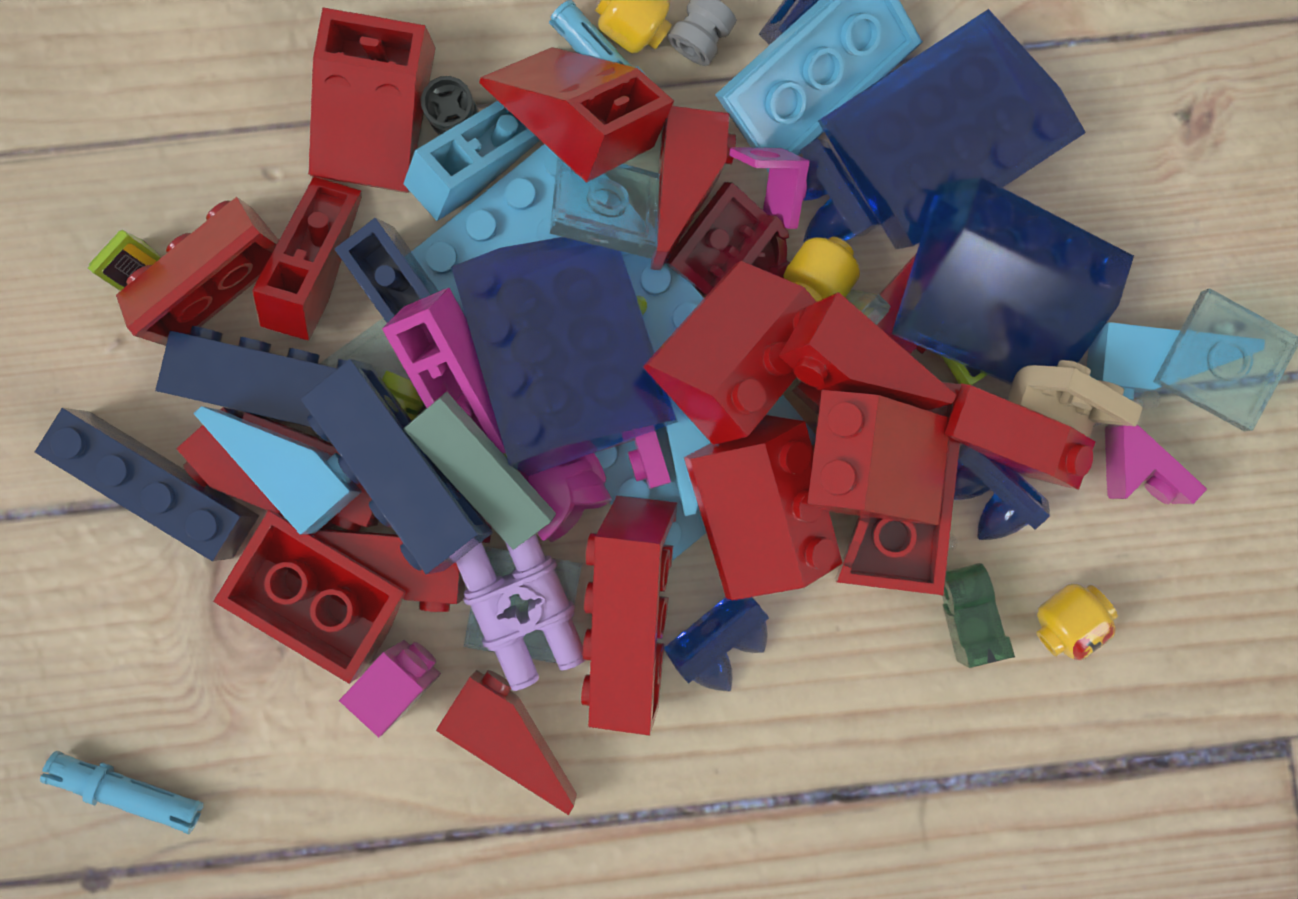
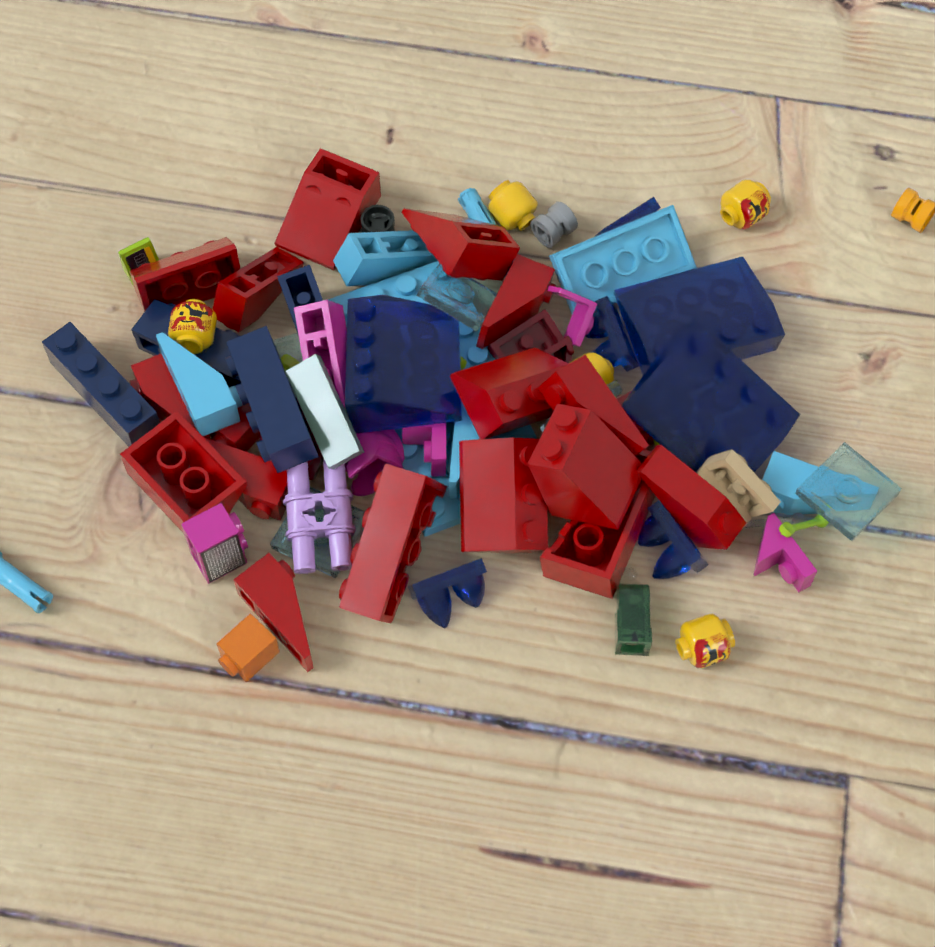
camera: 20 degrees right, 25 degrees down
(240, 372) = (192, 325): none -> yellow head
(484, 809) = (247, 648): none -> orange brick
(1157, 441) = (788, 529): none -> lime hinge

